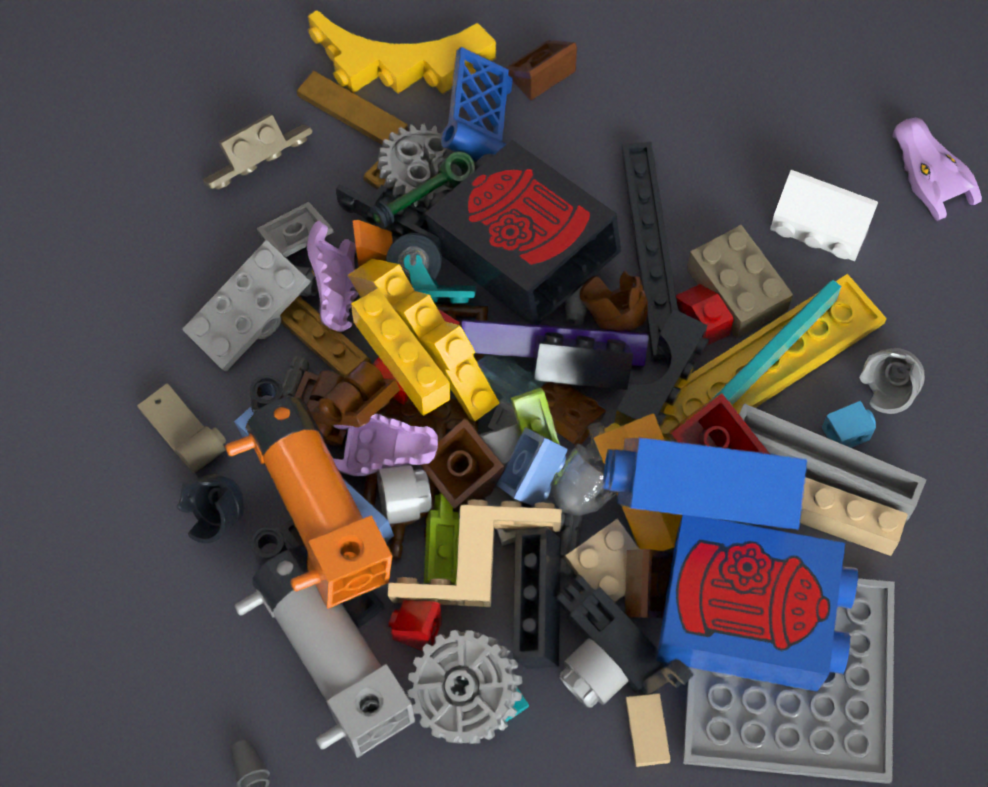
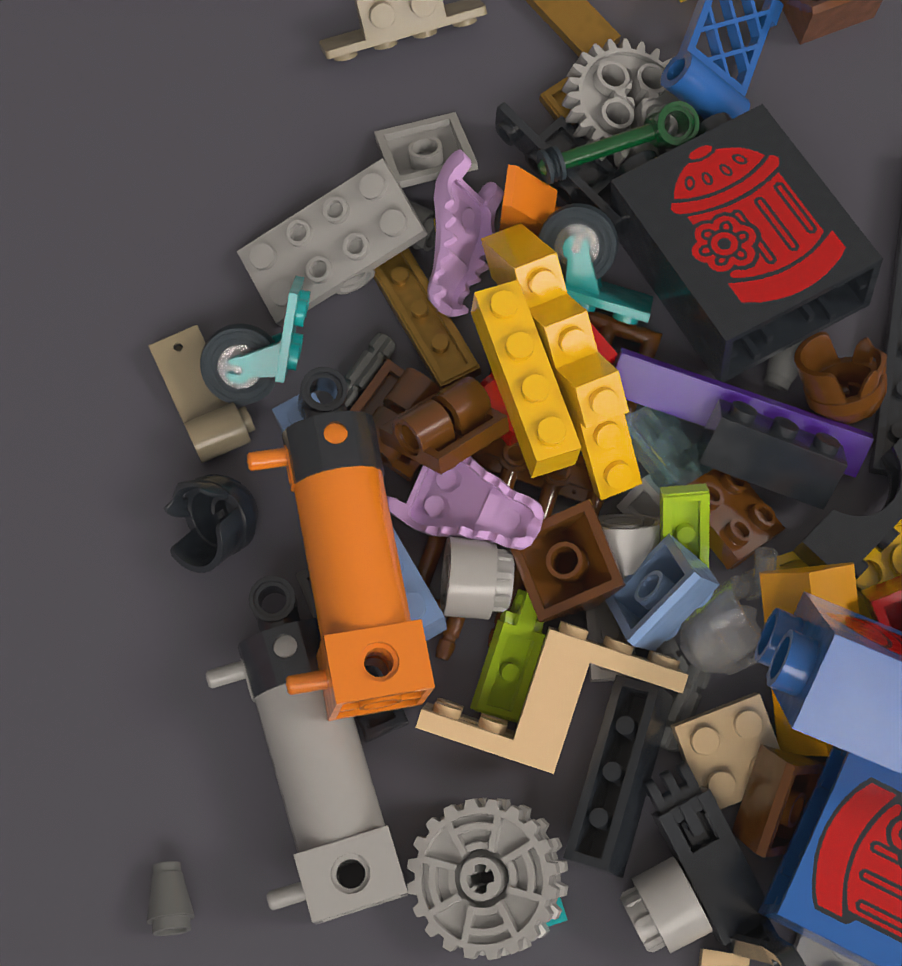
camera: 10 degrees right, 10 degrees up
(207, 396) = (246, 362): none -> plate
(416, 623) = (443, 765): red slope -> none

